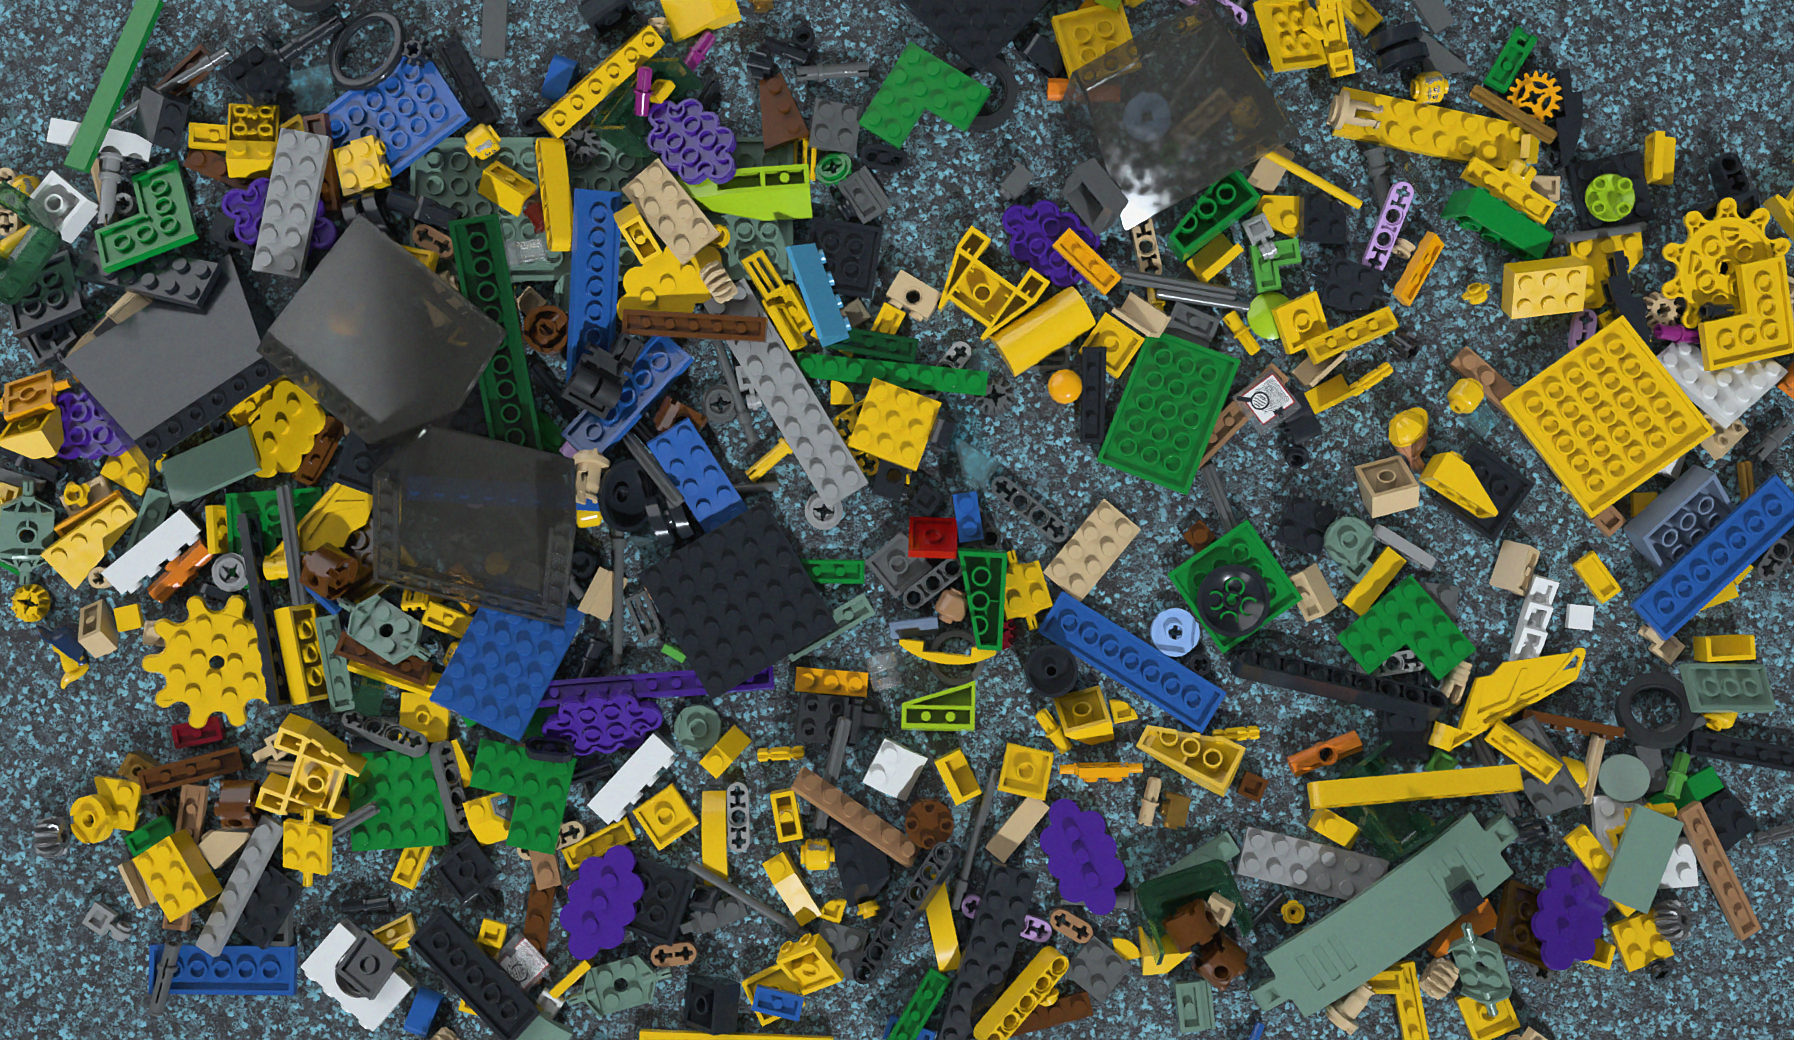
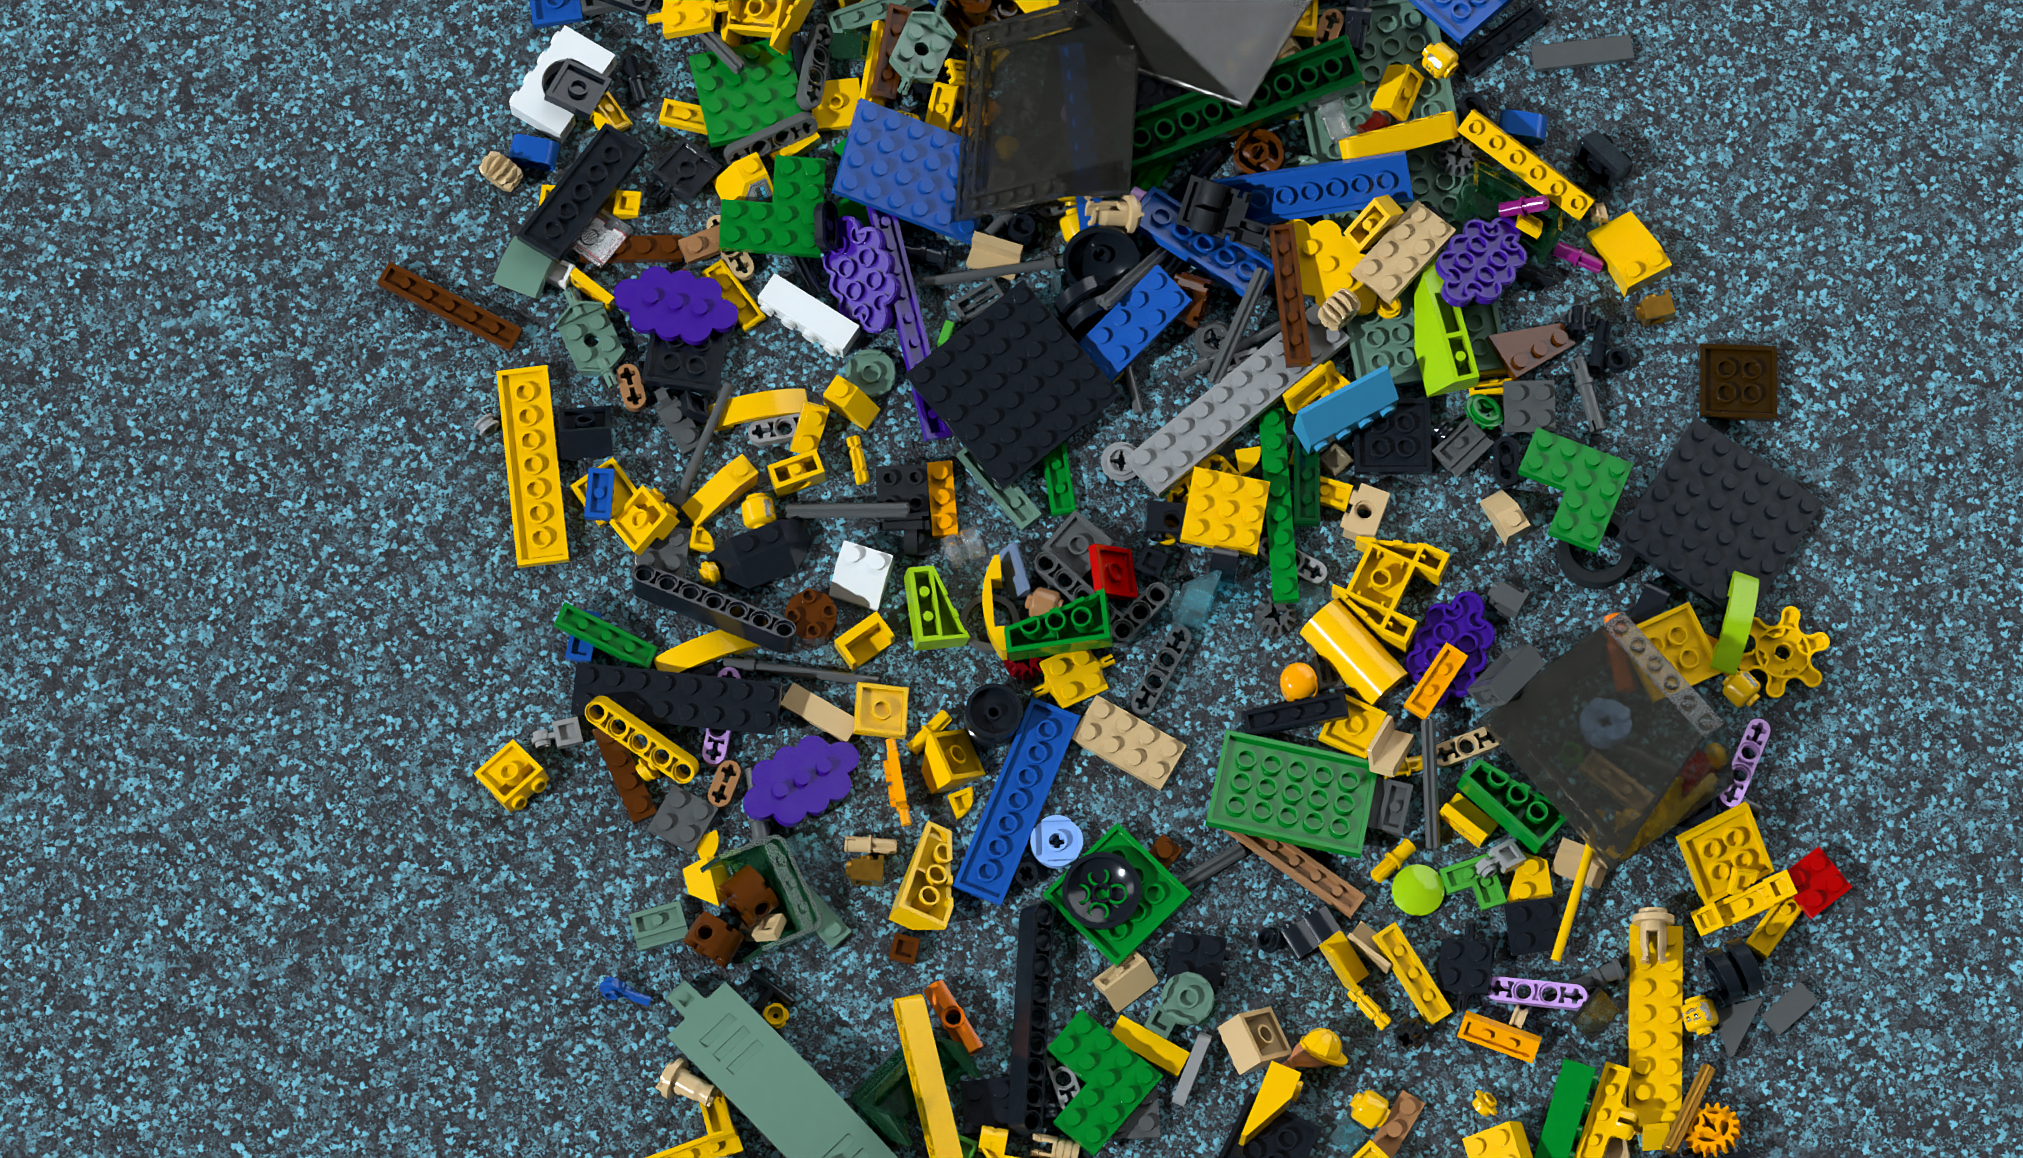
camera: 75 degrees right, 15 degrees down
(529, 300) = (1287, 134): tan plate -> none
(665, 816) = (773, 355): yellow plate -> none
(715, 379) = (1238, 325): none -> dark grey axle
(745, 795) = (809, 427): none -> yellow plate
(769, 460) = (1162, 396): yellow pin -> none
(773, 292) = (1340, 371): yellow tile -> none
(855, 817) = (805, 539): medium nougat plate -> none
(936, 169) = (1505, 516): none -> tan slope
(967, 516) = (1141, 601): blue plate -> none
(1202, 300) = (1419, 807): dark grey bar -> none
(1238, 733) = (958, 927): yellow axle -> none
(1266, 402) = (1320, 892): tile -> none
(1300, 321) = (1416, 916): yellow plate -> none
(1307, 864) = (830, 1016): light grey plate -> none
(1334, 827) = (874, 1043): yellow slope -> none
(1510, 60) = (1750, 1101): green plate -> none

